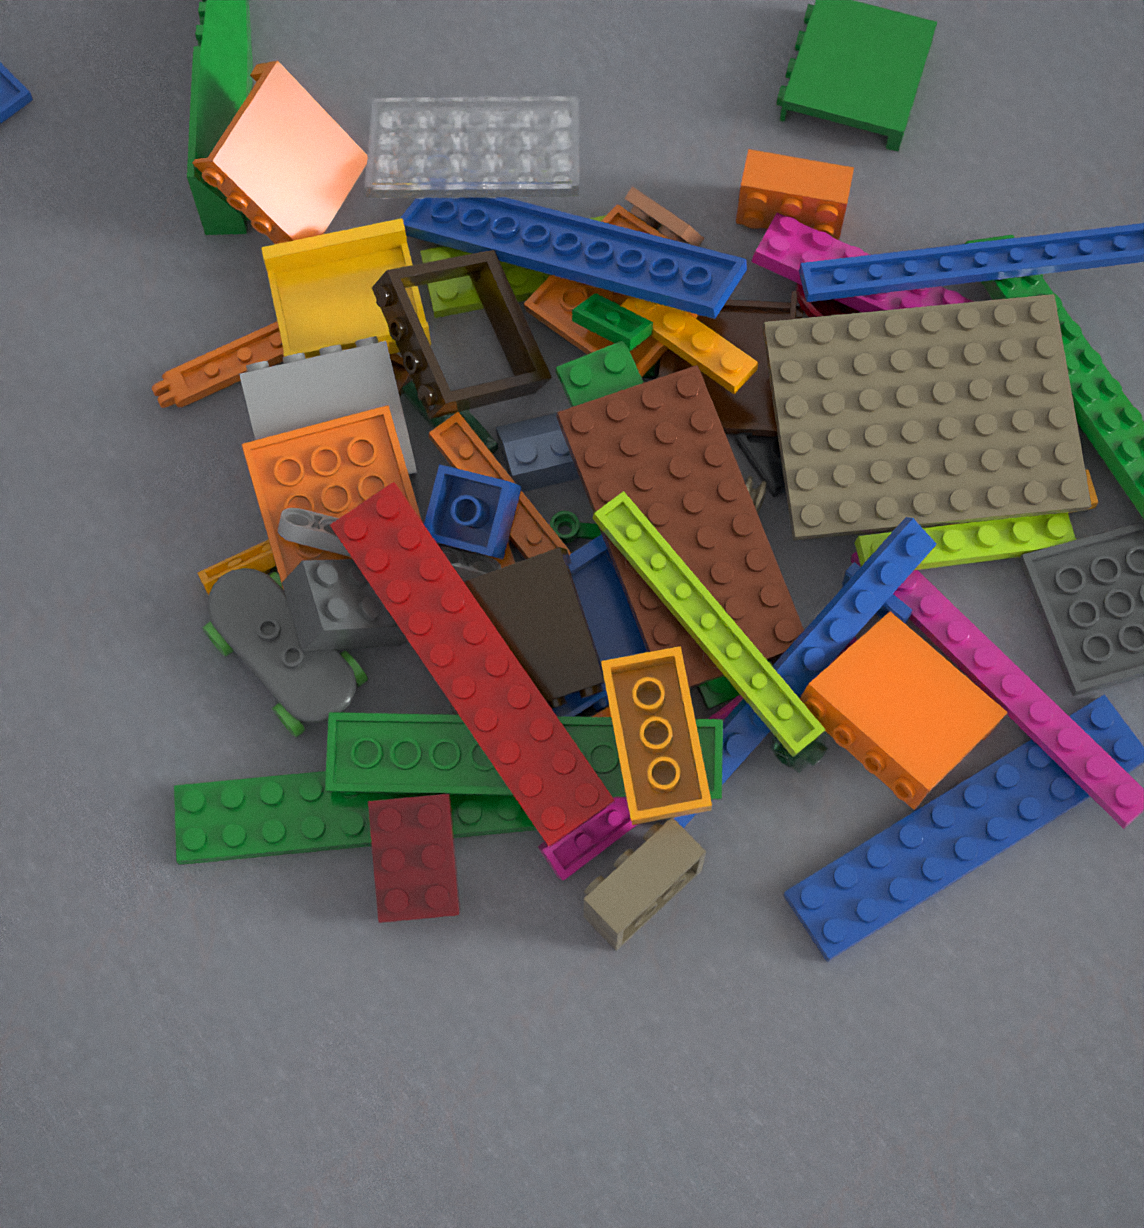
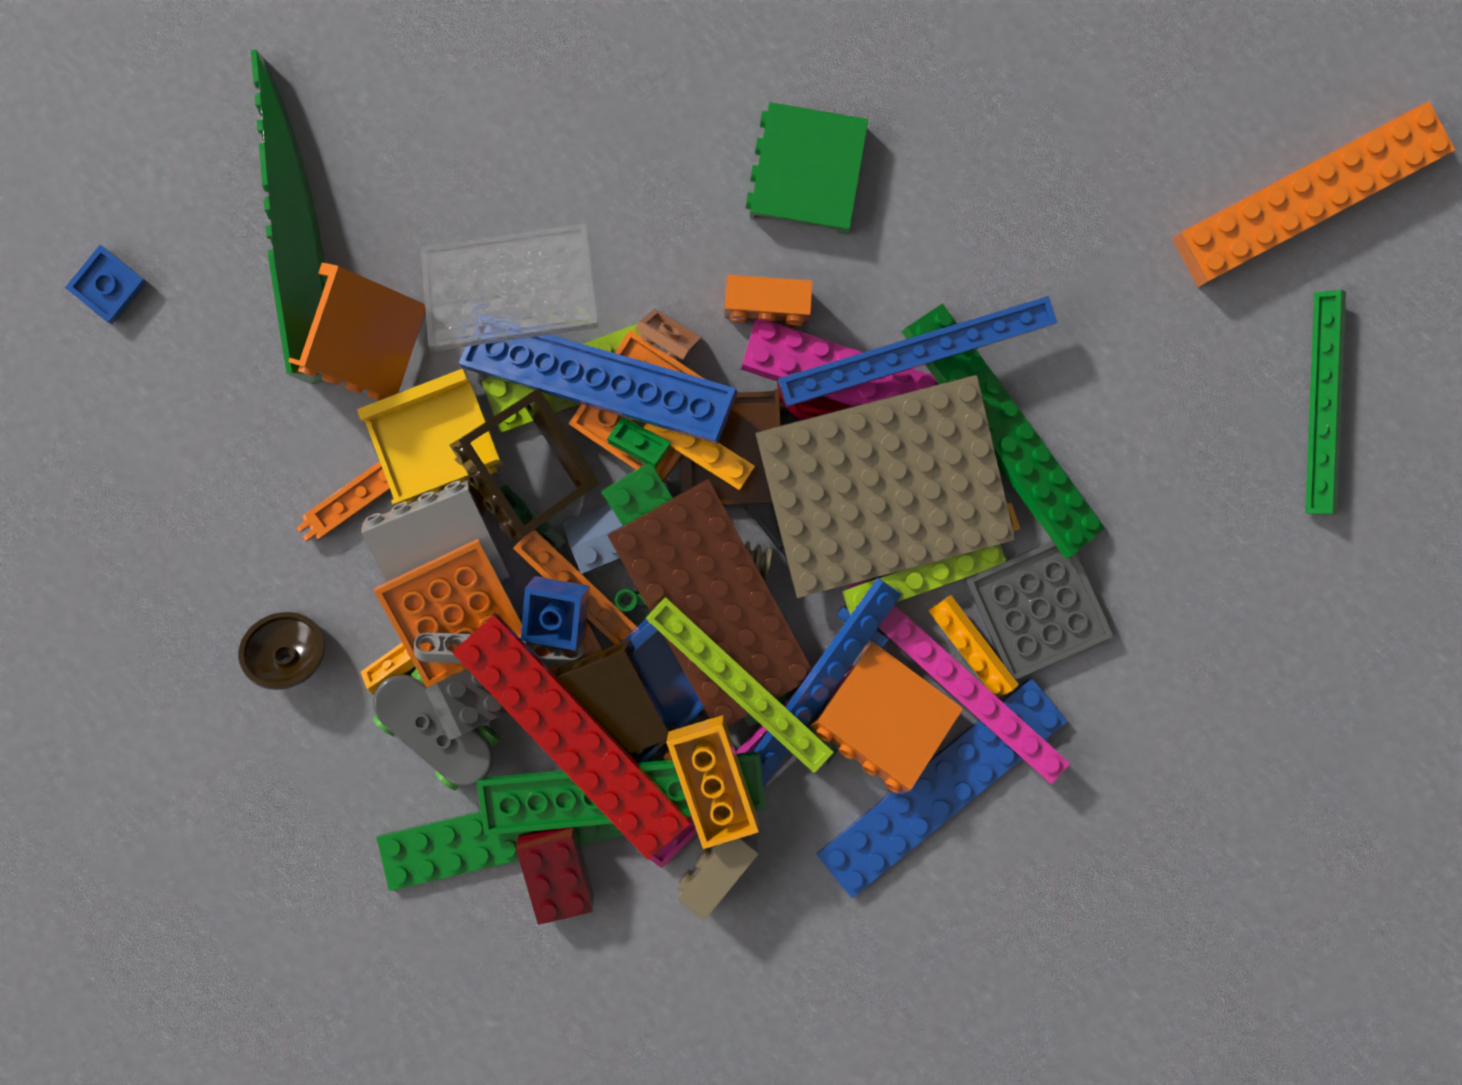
camera: 10 degrees left, 20 degrees up
(101, 524) = (274, 639): none -> dark brown dish
(1025, 639) = (973, 647): none -> light orange plate

